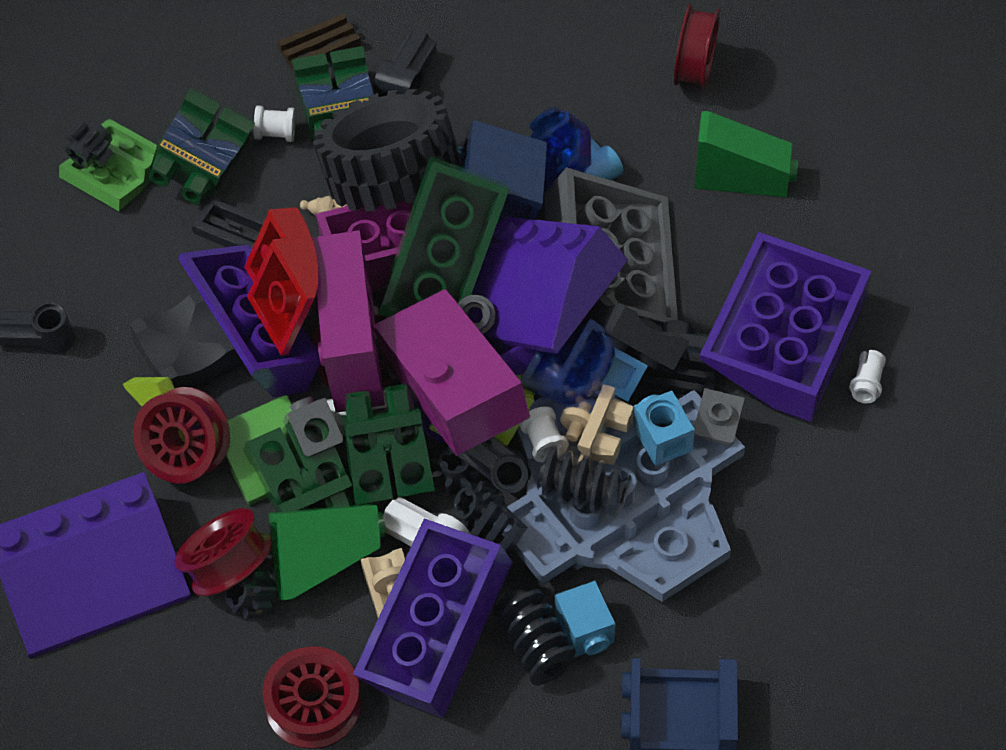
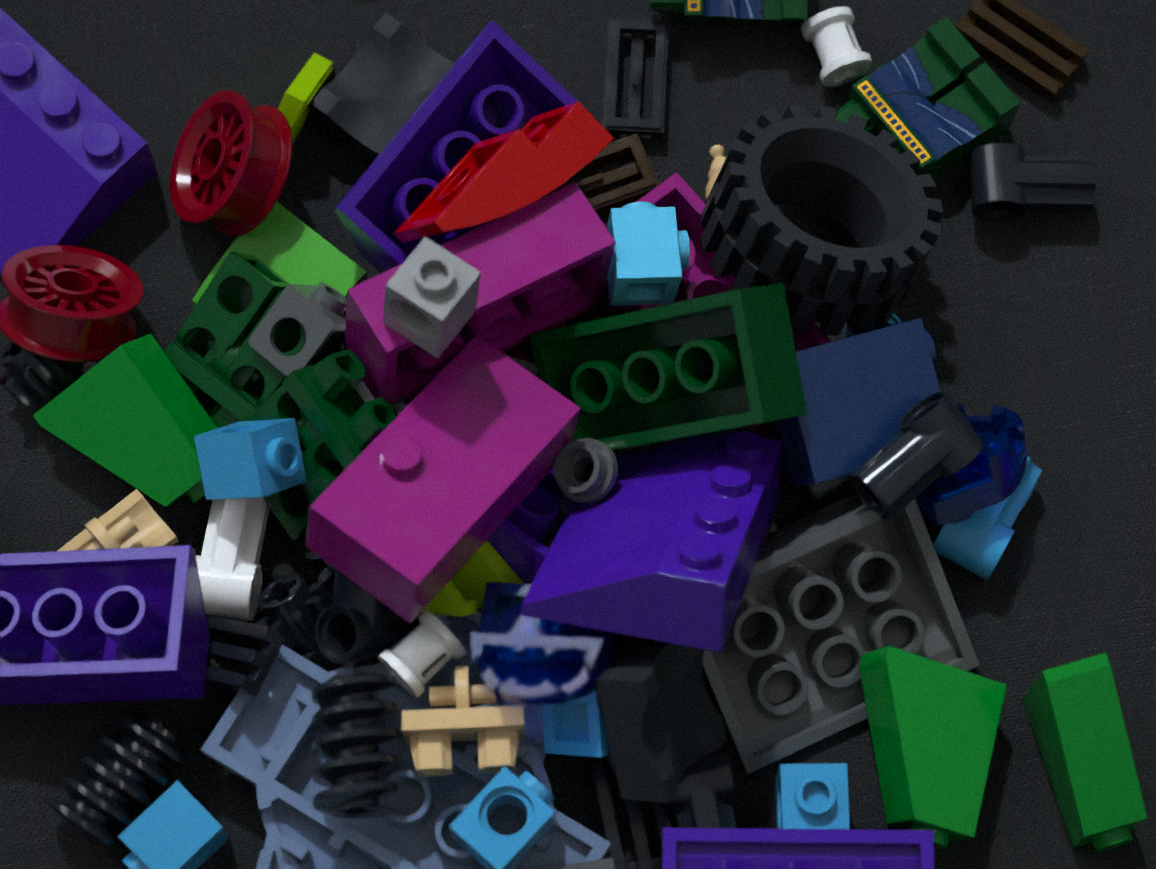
camera: 65 degrees right, 15 degrees up
(357, 308) = (431, 297): none -> light grey brick
(376, 231) = (646, 255): none -> medium azure brick
(382, 475) = (250, 459): none -> dark azure brick
(549, 144) = (930, 445): none -> black piece
(702, 225) = (930, 740): none -> green slope
(709, 292) = (812, 796): none -> dark azure brick

